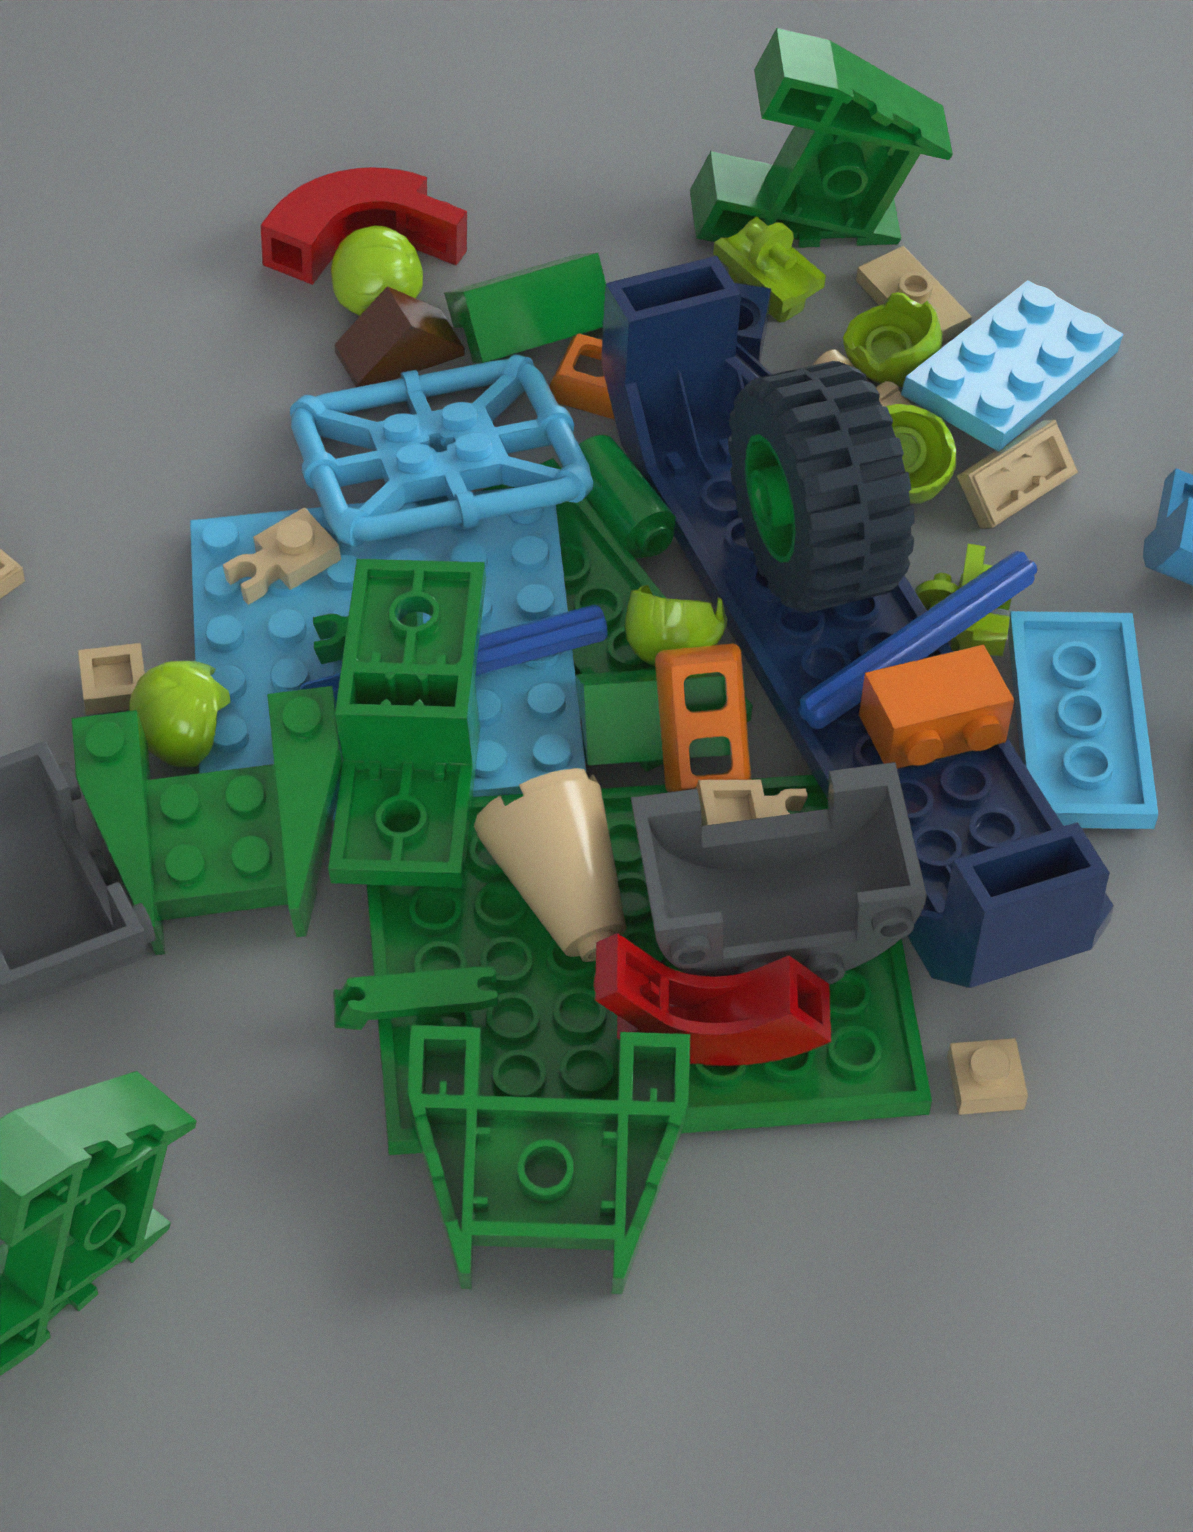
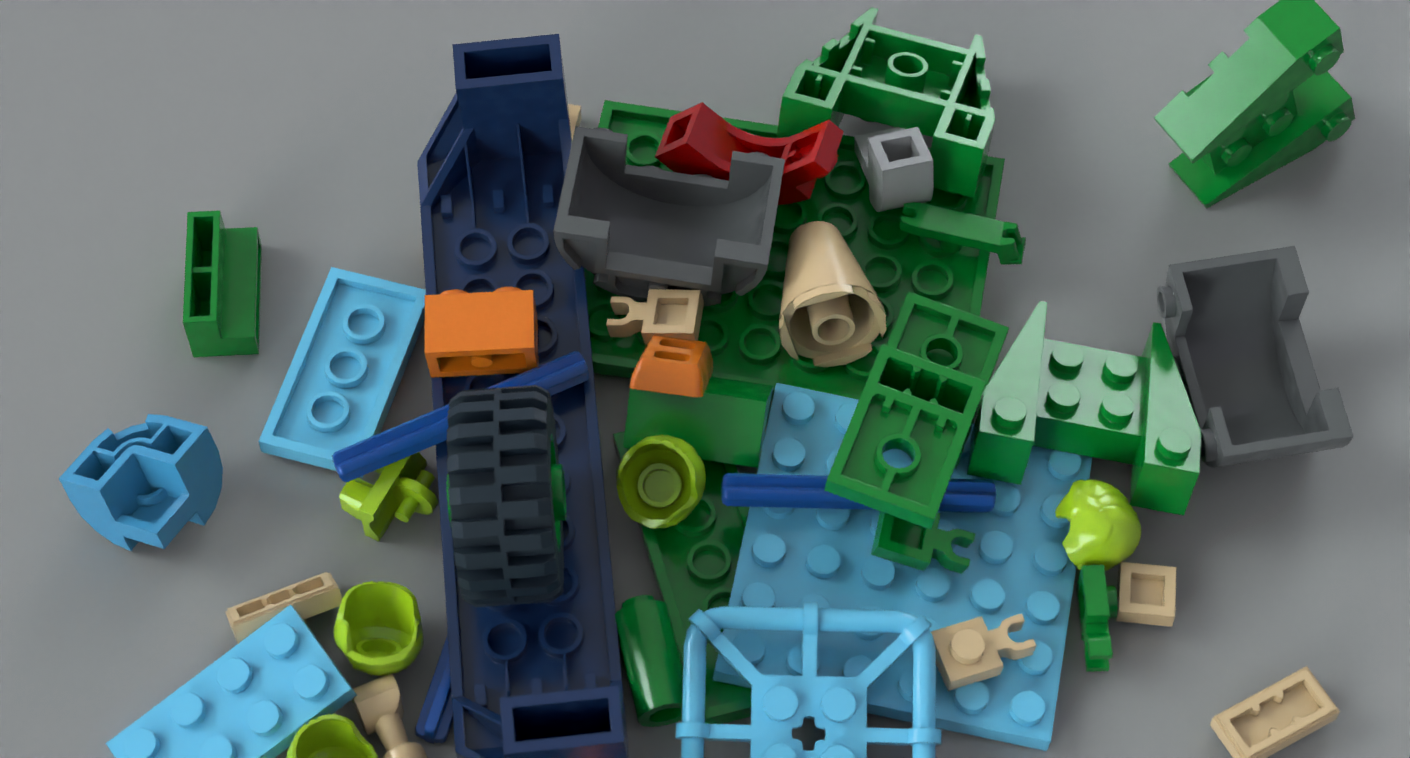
camera: 160 degrees left, 5 degrees up
(161, 619) = (1095, 607): none -> green plate
(520, 1031) = (895, 167): none -> light grey brick

